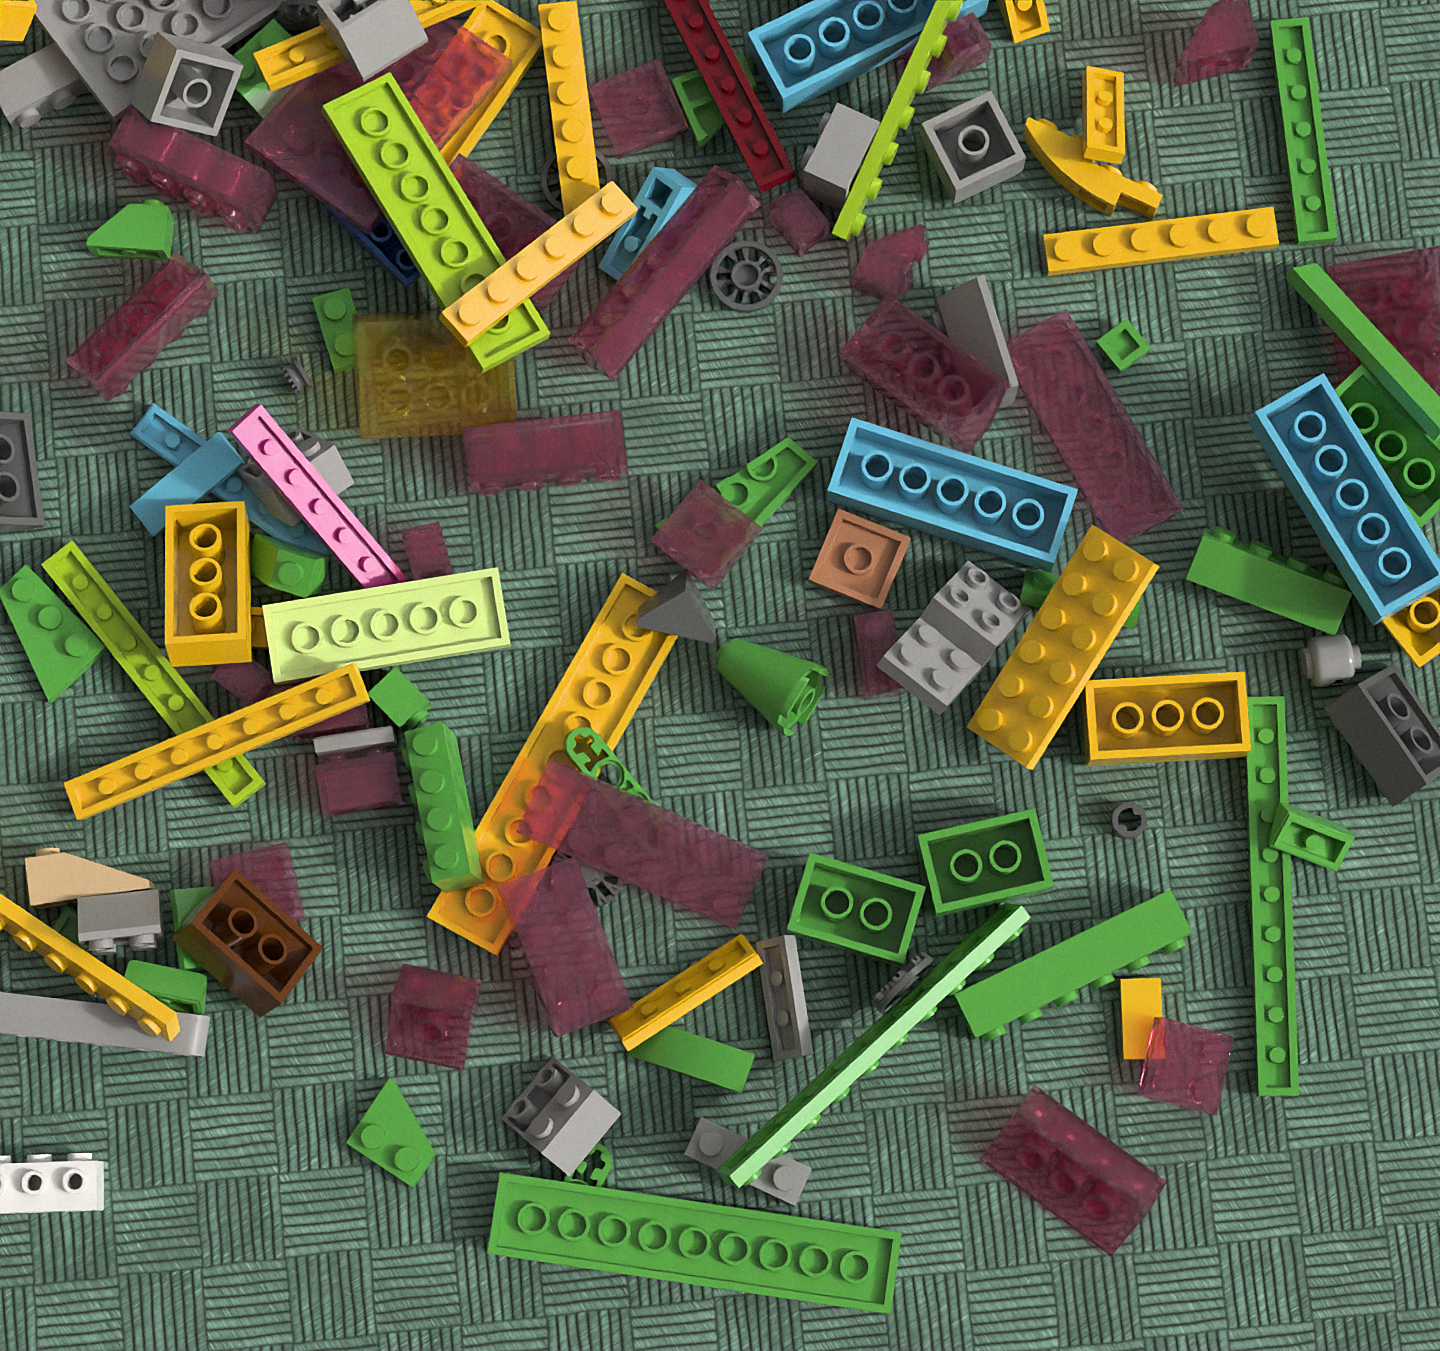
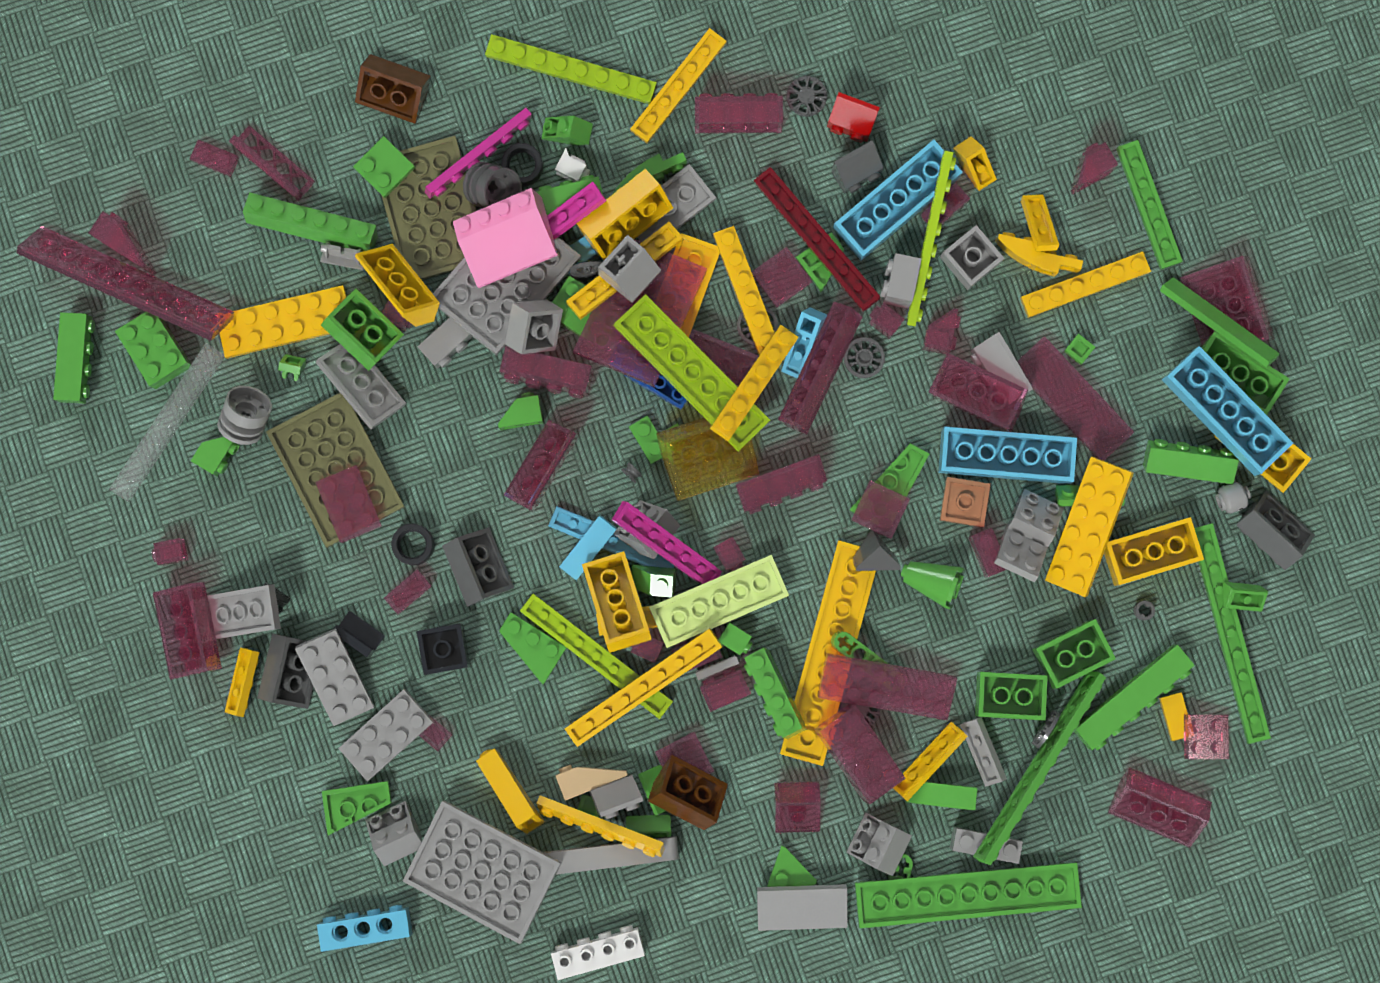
camera: 15 degrees left, 5 degrees up
(396, 1193) = (802, 907): none -> light grey tile

